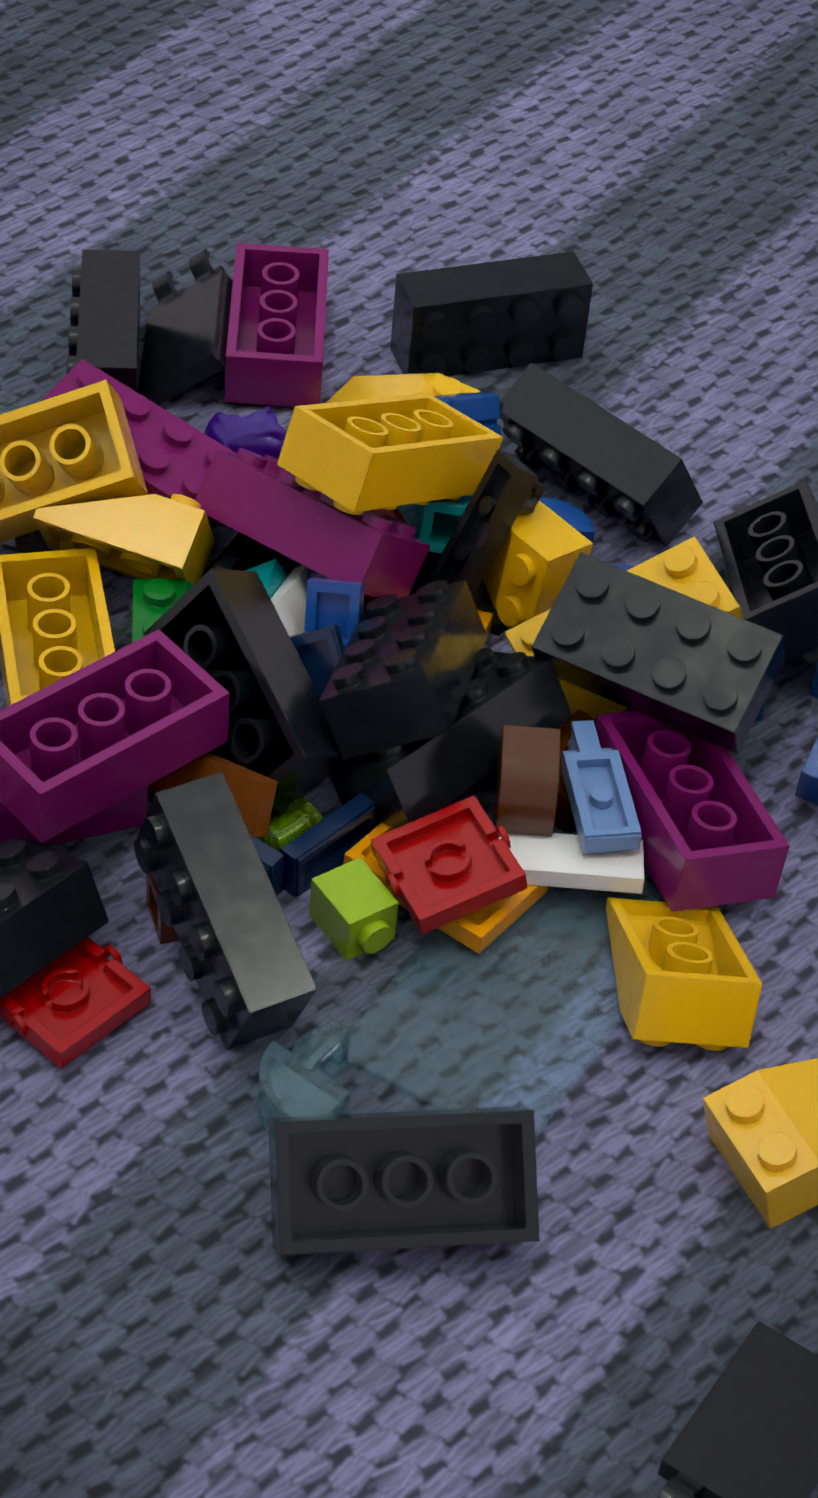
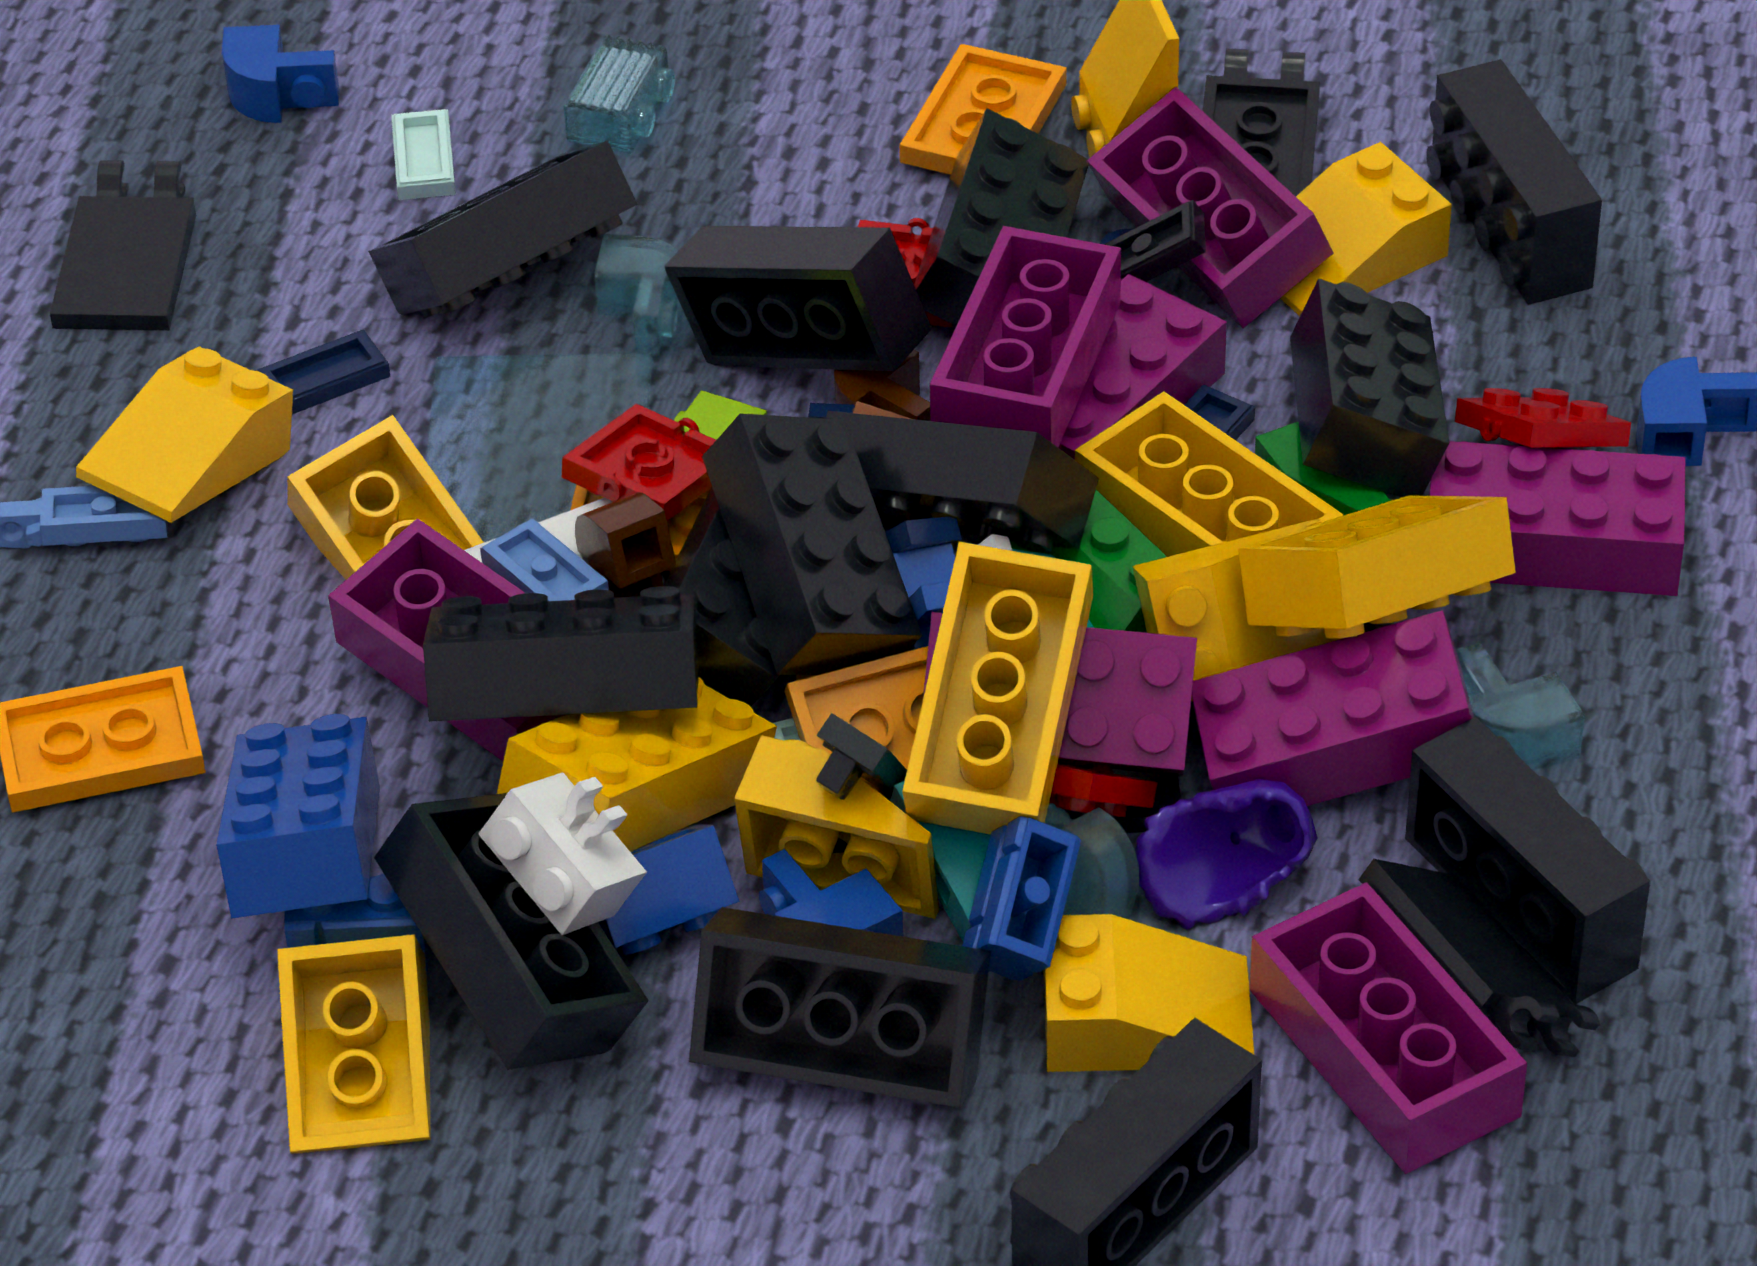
camera: 155 degrees right, 0 degrees up
(151, 1345) = (619, 94): none -> clear light blue brick
(385, 1410) = (423, 154): none -> light aqua tile
(639, 1187) = (330, 370): none -> dark blue tile
(741, 546) = (564, 850): none -> white brick

